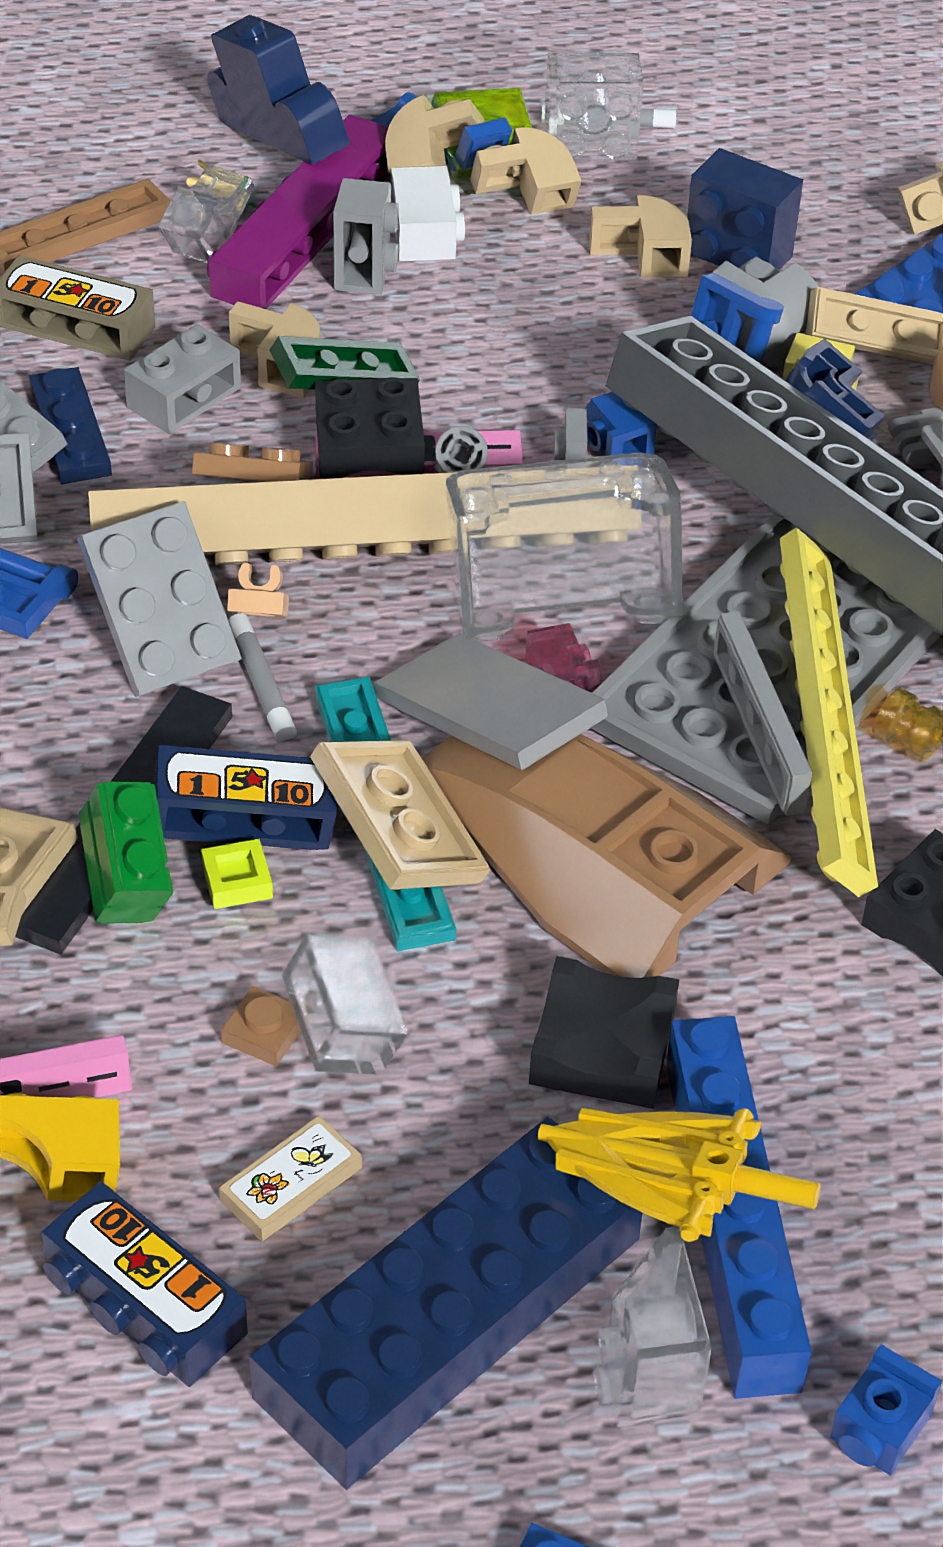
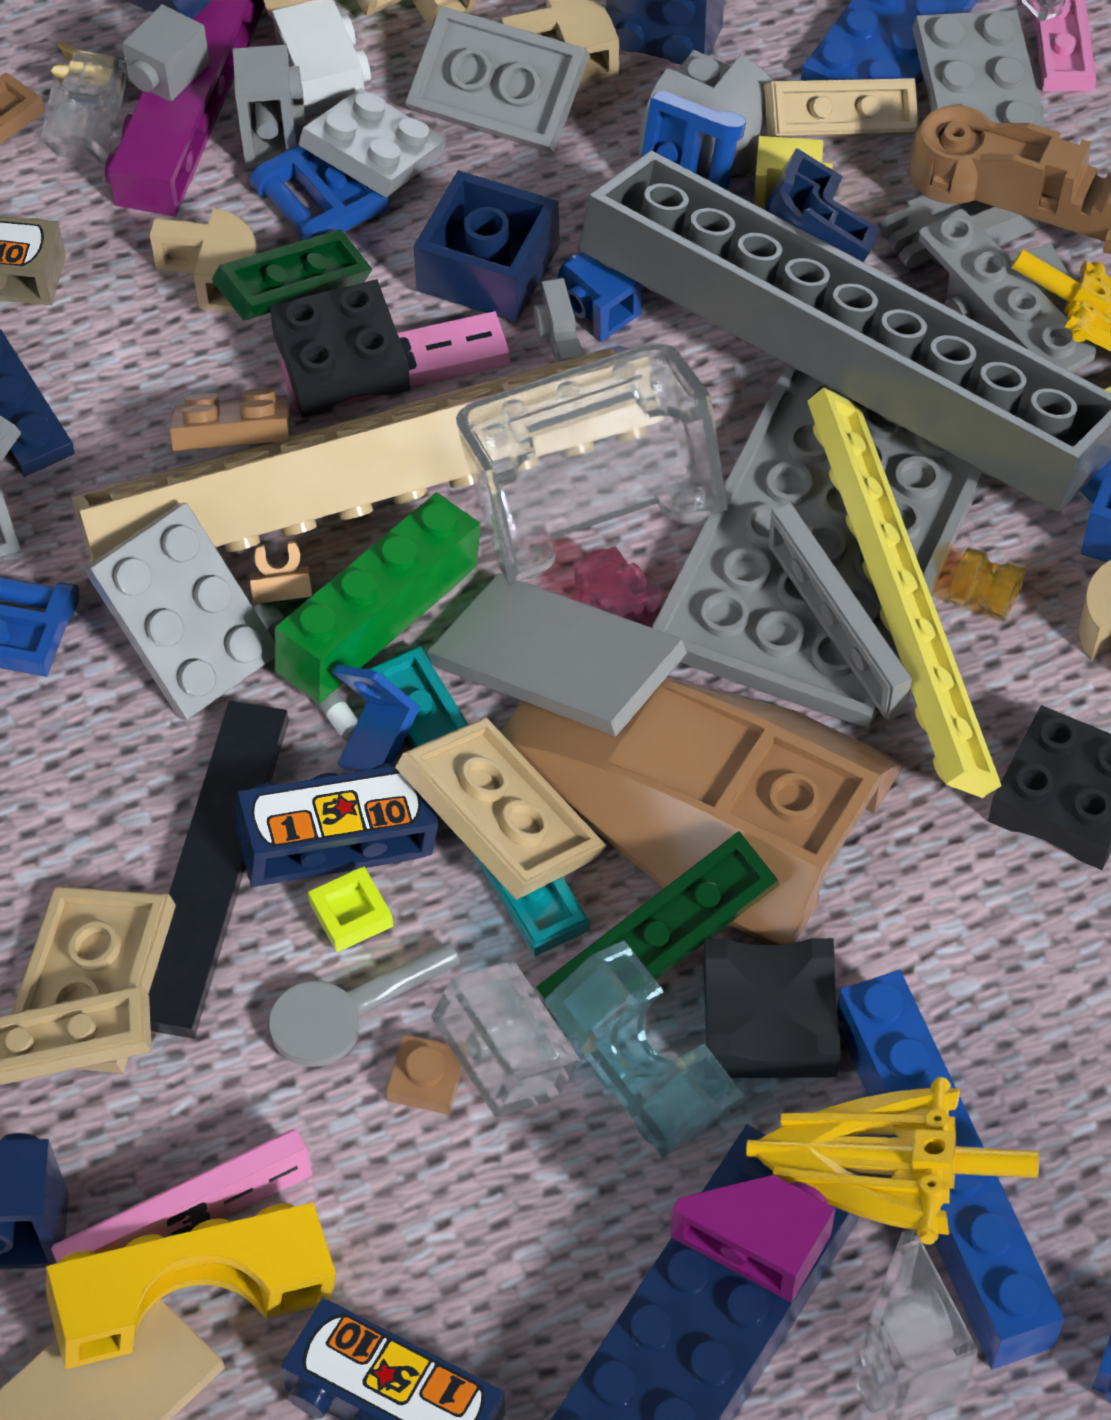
camera: 10 degrees left, 10 degrees up
(125, 852) = (234, 918): green brick -> none
(182, 378) = (119, 322): light grey brick -> none
(183, 960) = (320, 1021): none -> light grey piece
(286, 177) = (166, 53): none -> light grey brick
(290, 1178) = (501, 1238): tile -> none
(322, 718) = (382, 722): none -> blue bracket
(339, 625) = (377, 596): none -> green brick
(404, 302) = (340, 195): none -> blue plate
(441, 994) = (604, 1016): none -> clear light blue arch
(450, 282) = (372, 142): none -> light grey plate
(460, 458) = (437, 367): light grey wheel -> none
(513, 945) = (685, 911): none -> dark green plate
(525, 374) = (487, 245): none -> dark blue brick
(526, 1198) = (758, 1230): none -> magenta slope
(575, 254) = (497, 79): none -> light grey plate

